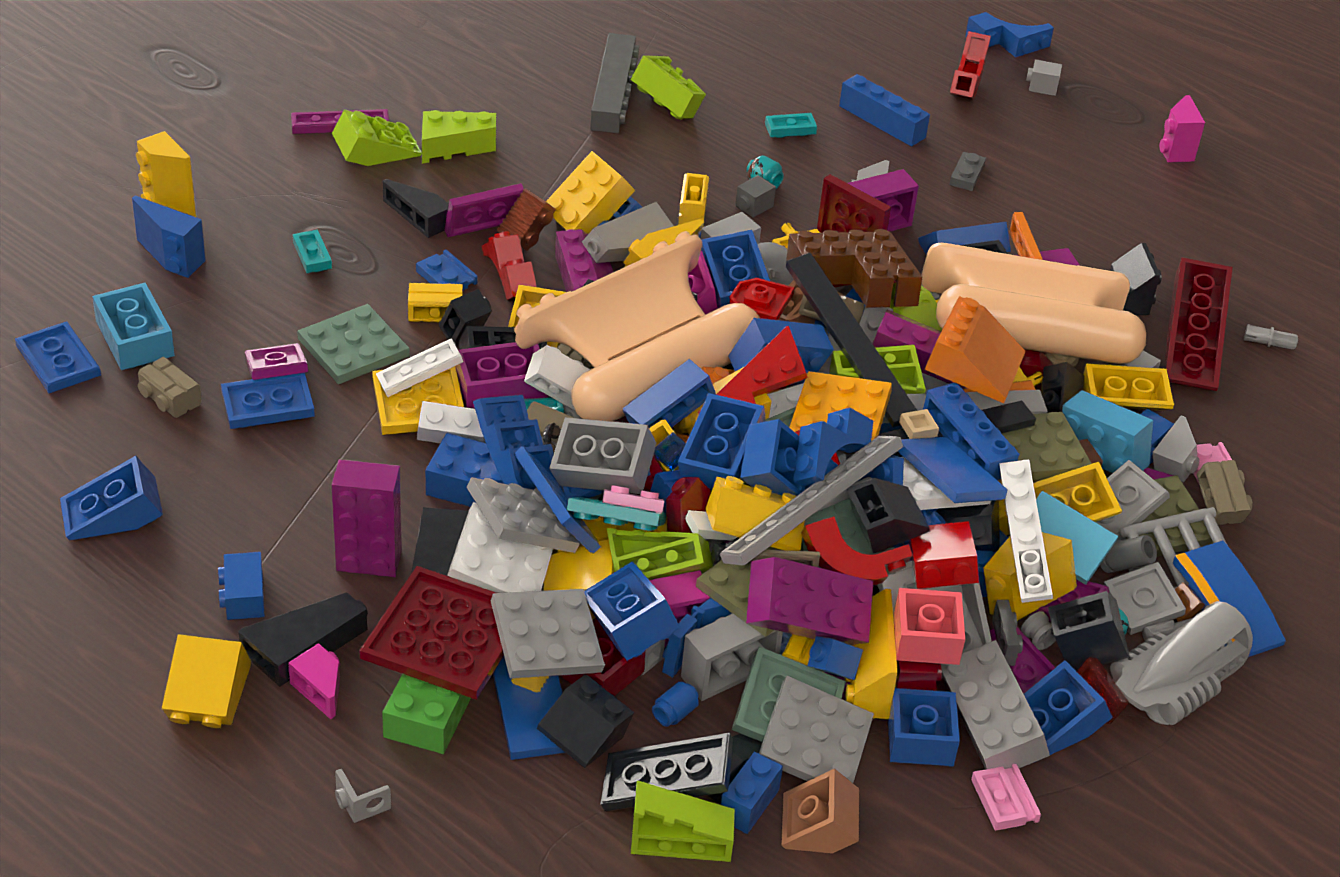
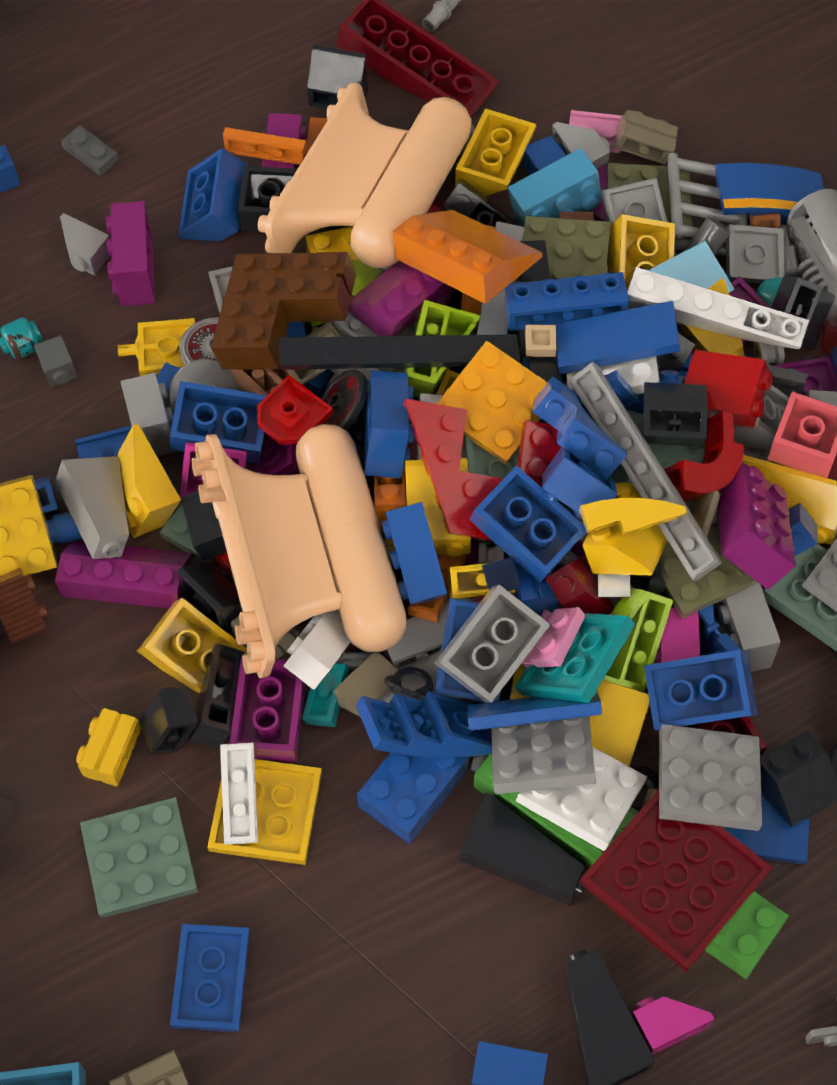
camera: 65 degrees left, 20 degrees up
(276, 361) = (149, 952): magenta plate -> none
(367, 517) = (496, 910): magenta brick -> none
(441, 419) = (341, 778): white brick -> none
(445, 270) = (52, 721): blue plate -> none
(508, 258) = (65, 644): arch -> none
(675, 704) = (782, 690): blue brick -> none
(693, 198) = (46, 423): yellow brick -> none
(749, 480) = (629, 514): none -> yellow slope
(849, 208) = (167, 283): dark red plate -> none

